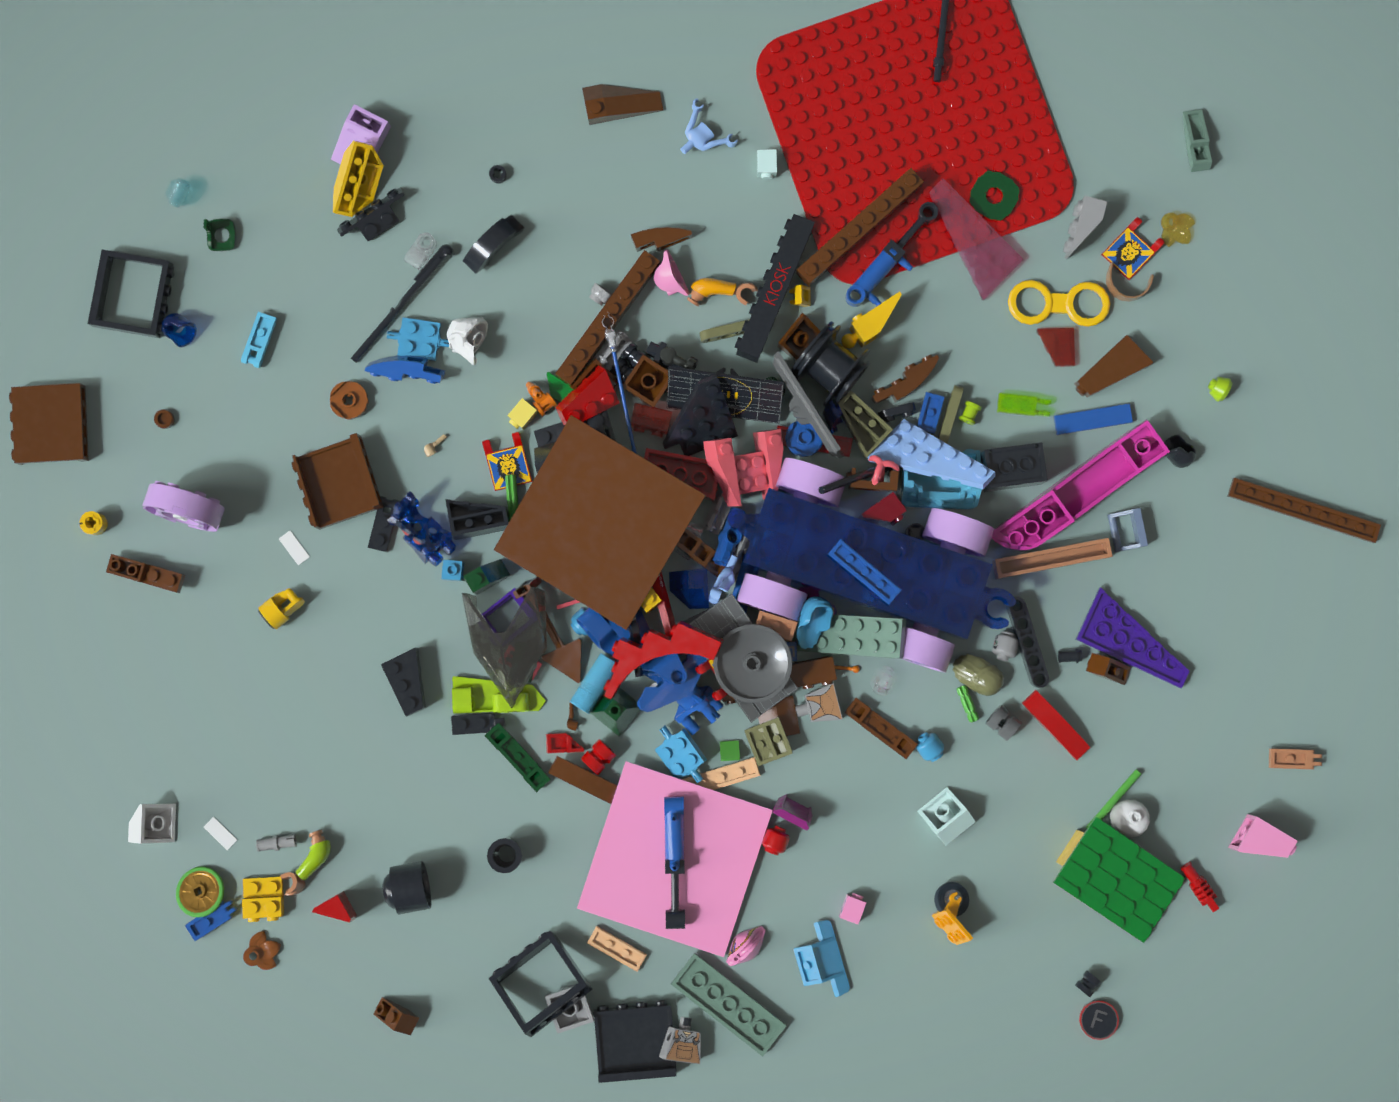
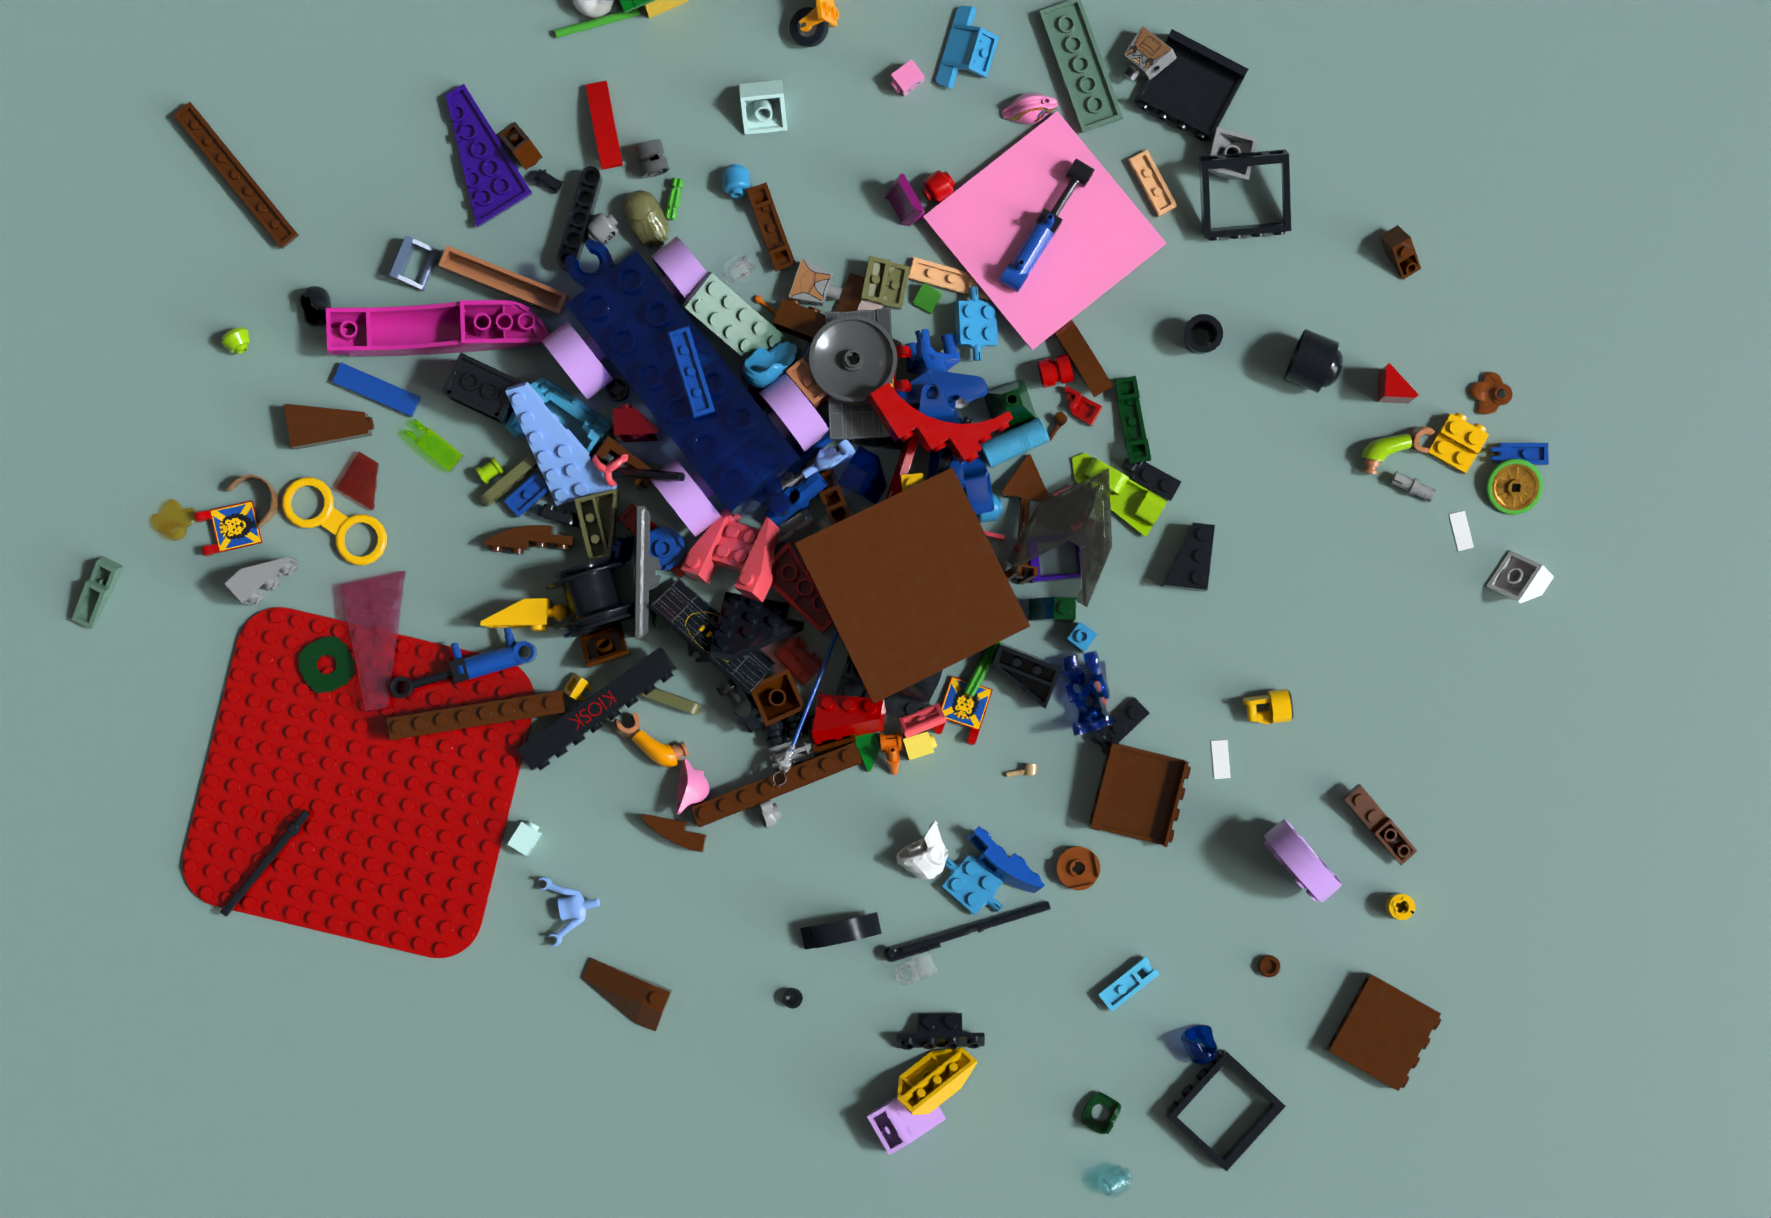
camera: 150 degrees left, 0 degrees up
(529, 432) = (922, 720): none -> coral tile

